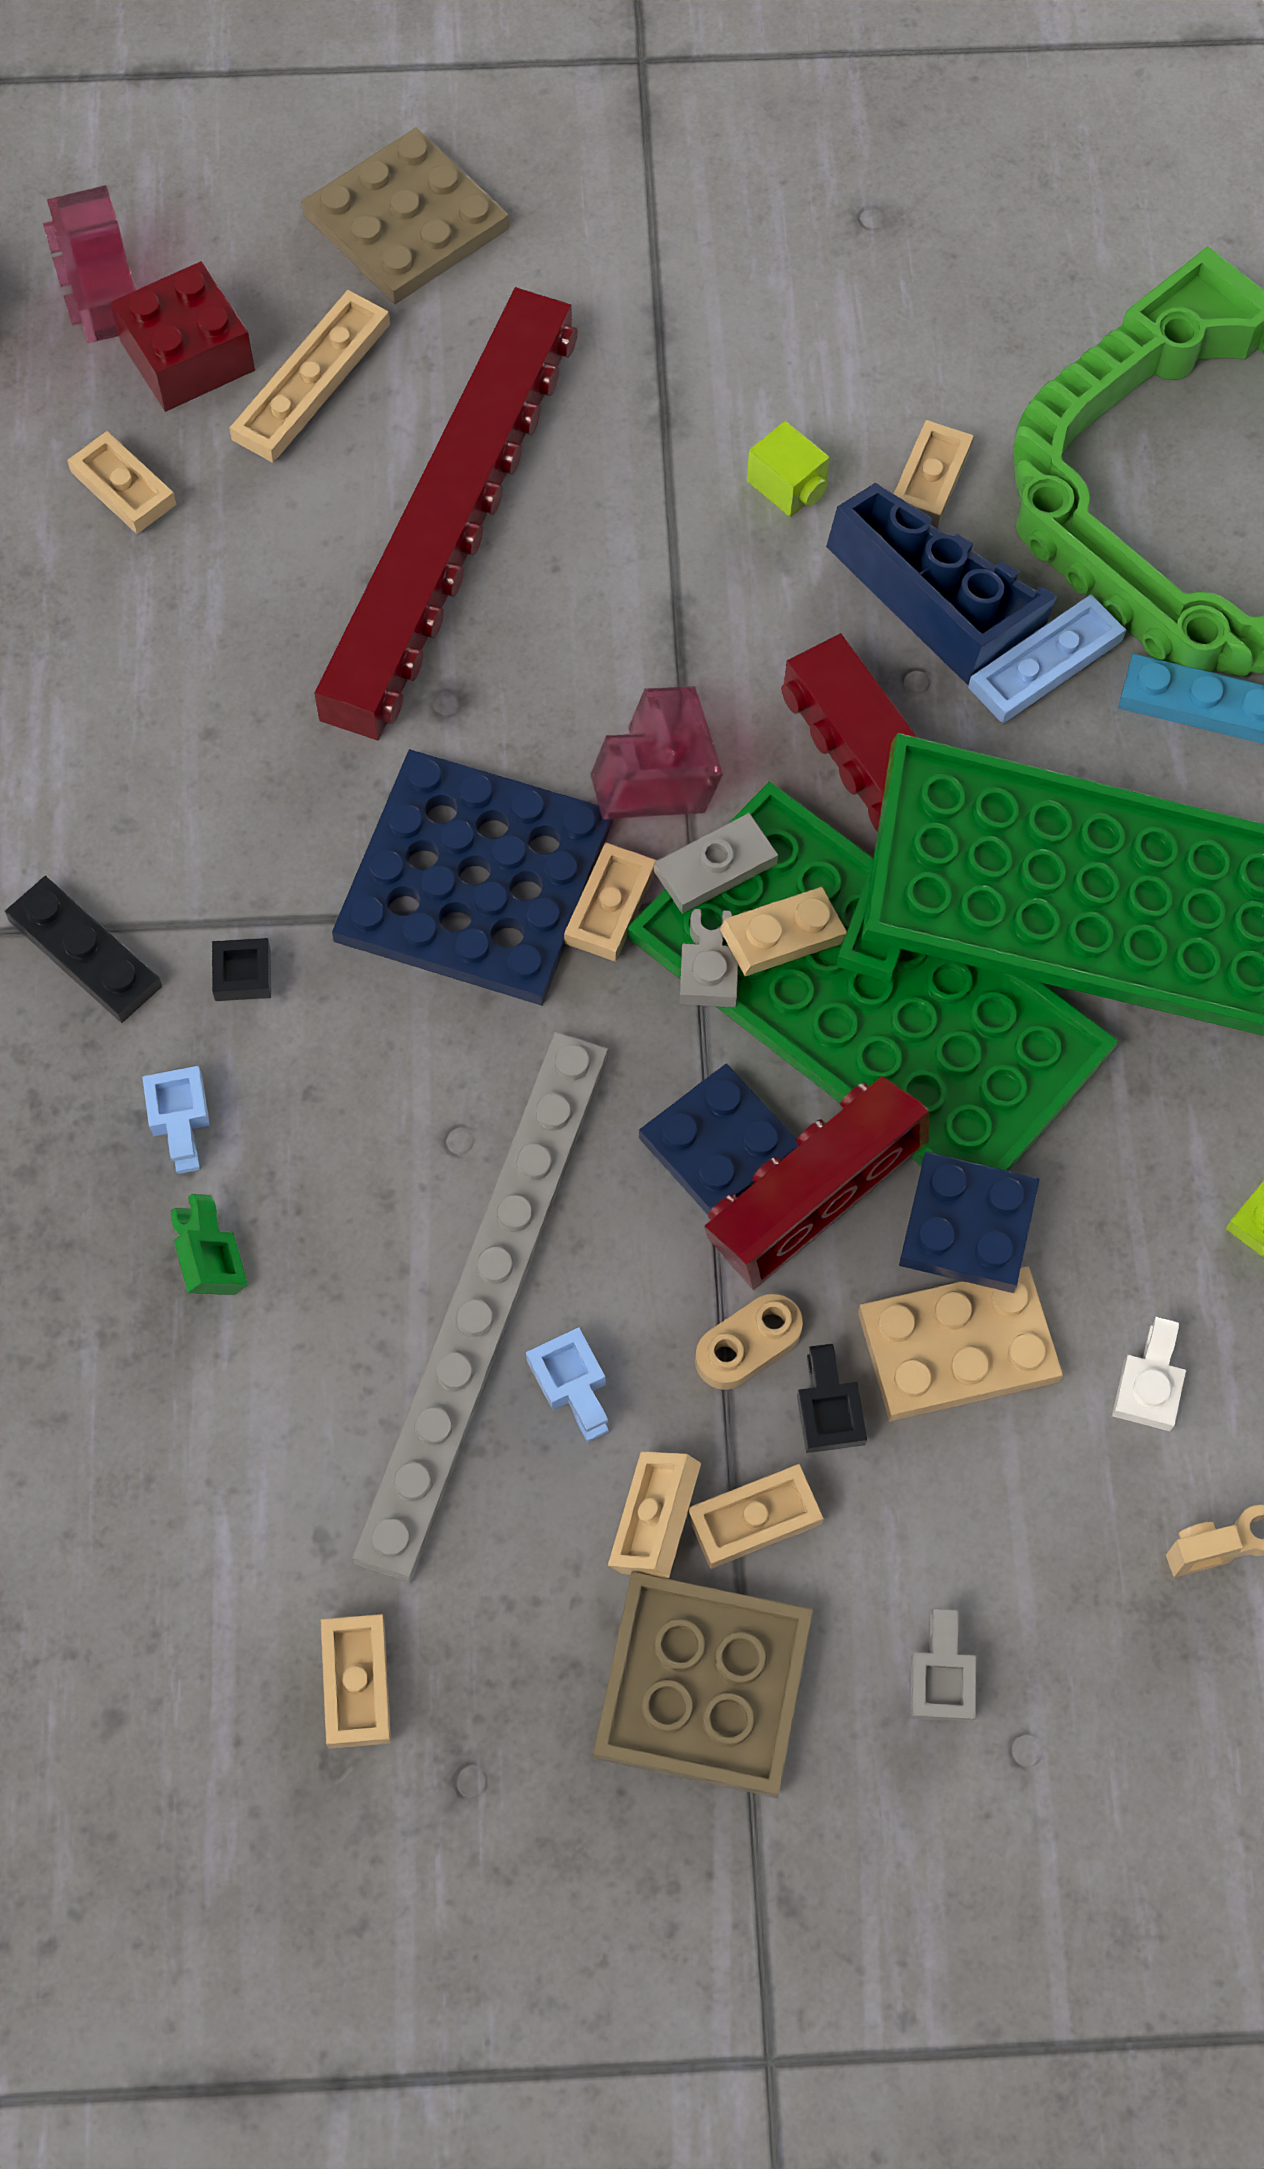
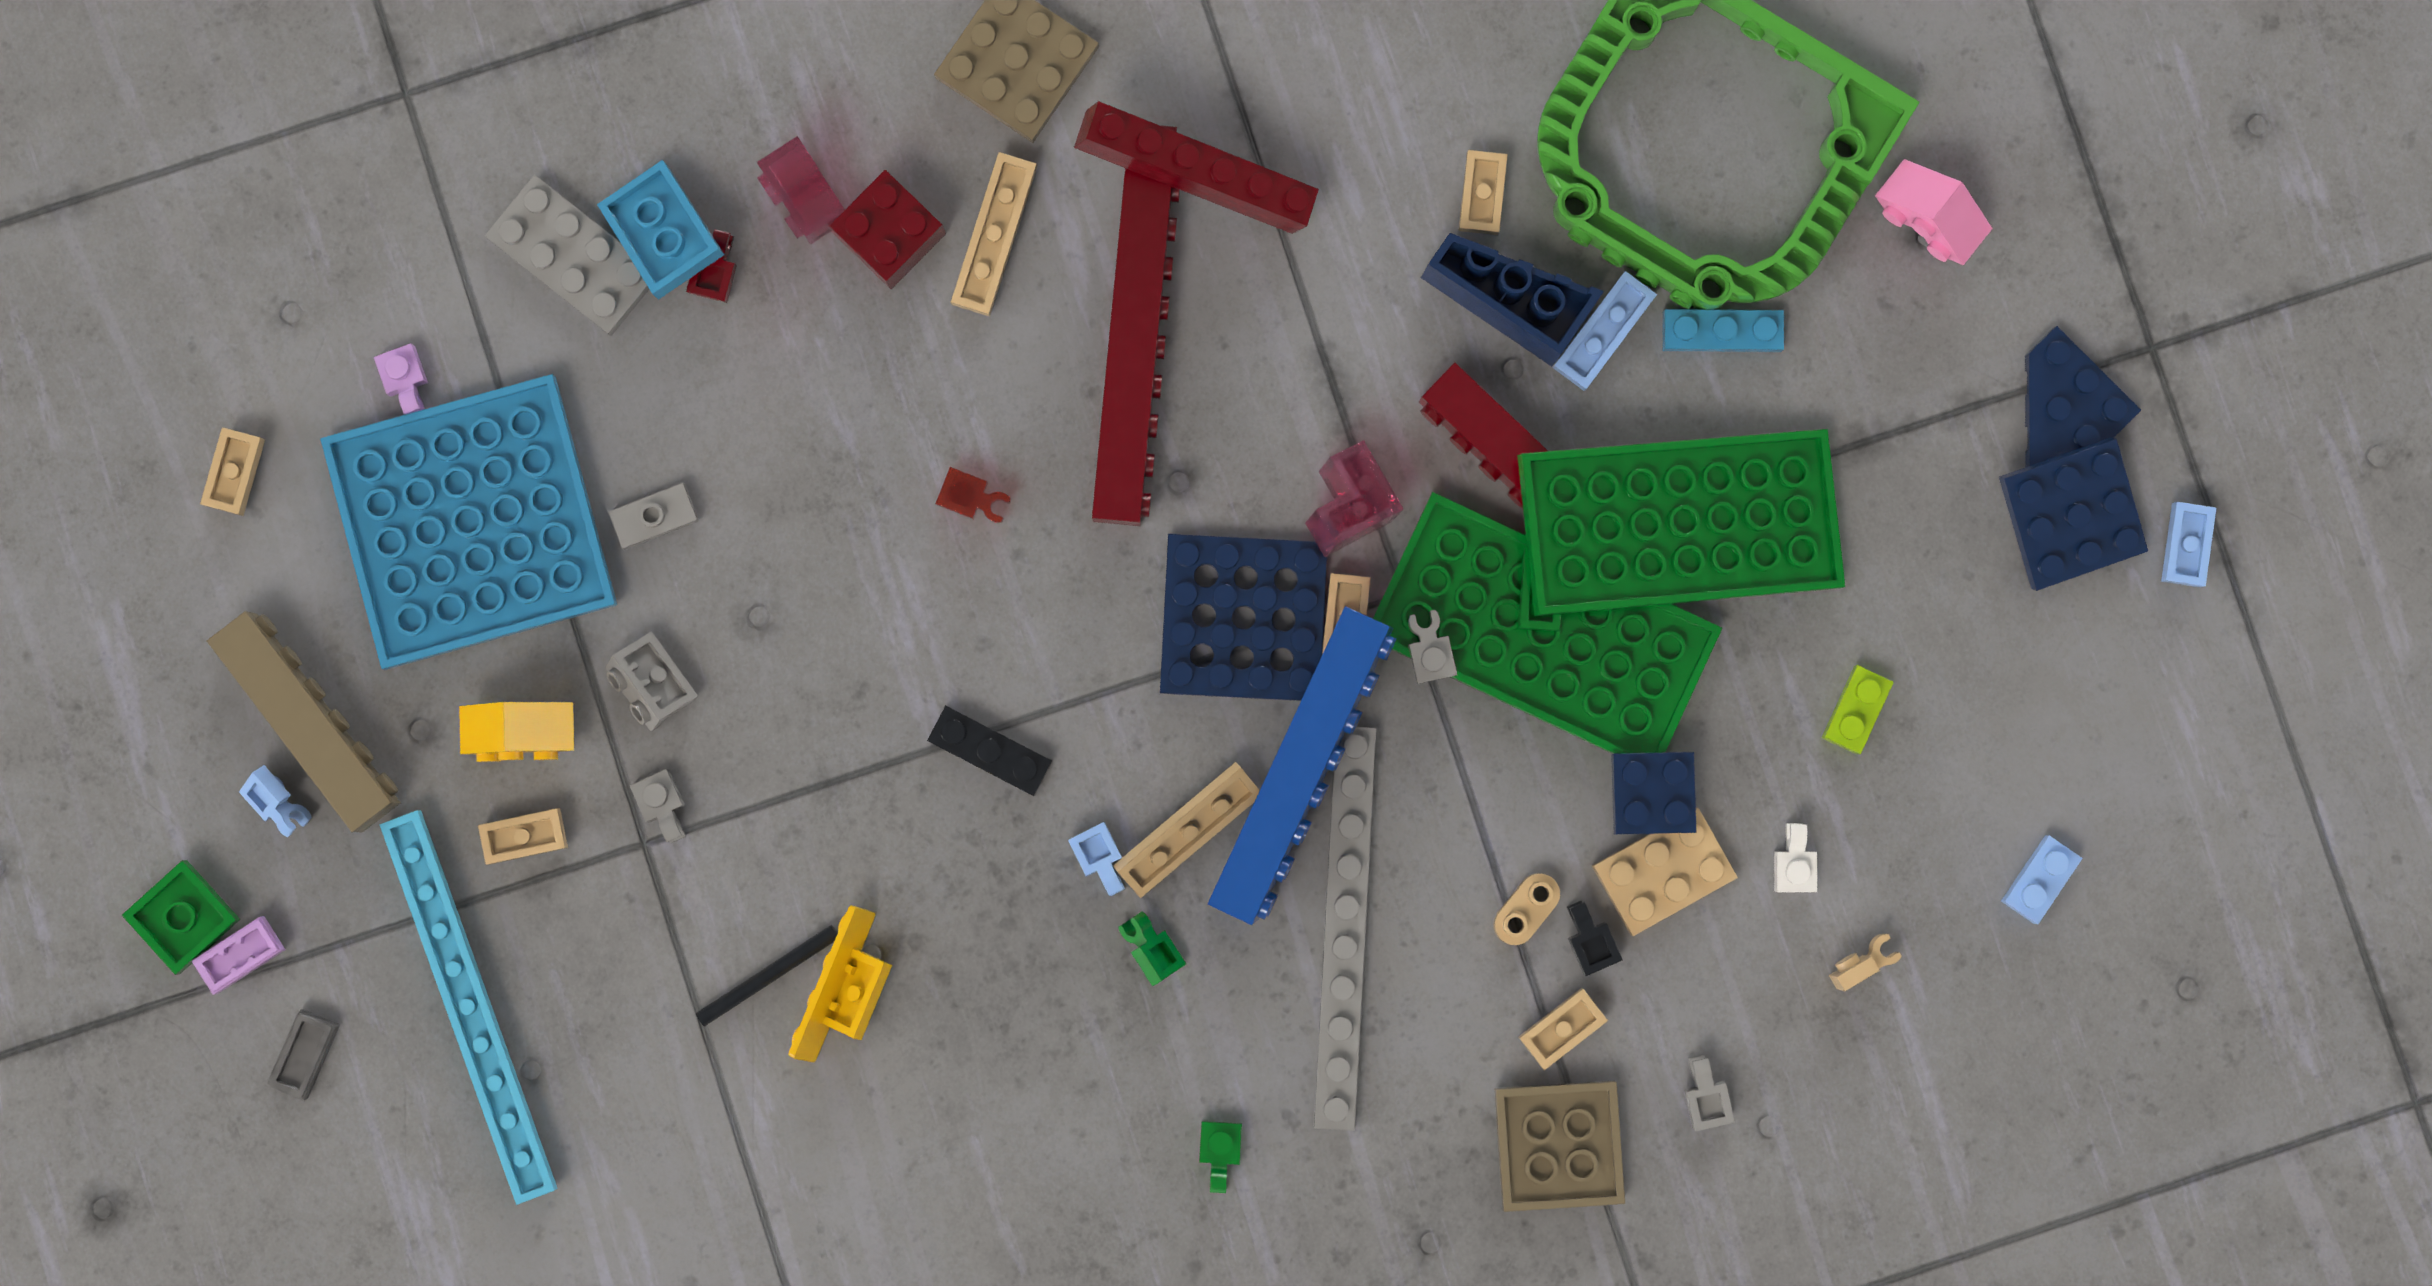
camera: 20 degrees left, 20 degrees up
(122, 482) = (885, 368): tan plate -> none
(171, 641) = (966, 494): none -> clear red plate
(205, 1552) = (1220, 1146): none -> green plate
(241, 969) = (1106, 739): black plate -> none
(309, 1108) = (1187, 830): none -> tan plate
(355, 1681) = (1341, 1205): tan plate -> none
(485, 1047) = (1301, 765): none -> blue brick
(570, 1375) = (1417, 967): light blue plate -> none
(578, 339) = (1196, 167): none -> dark red brick
(654, 1514) = (1499, 1047): tan plate -> none
(715, 863) = (1414, 572): light grey plate -> none
(716, 1138) = (1469, 772): dark blue plate -> none
(783, 931) = (1476, 615): tan plate -> none
(788, 469) = (1377, 221): lime brick -> none
(818, 1180) = (1546, 796): dark red slope -> none

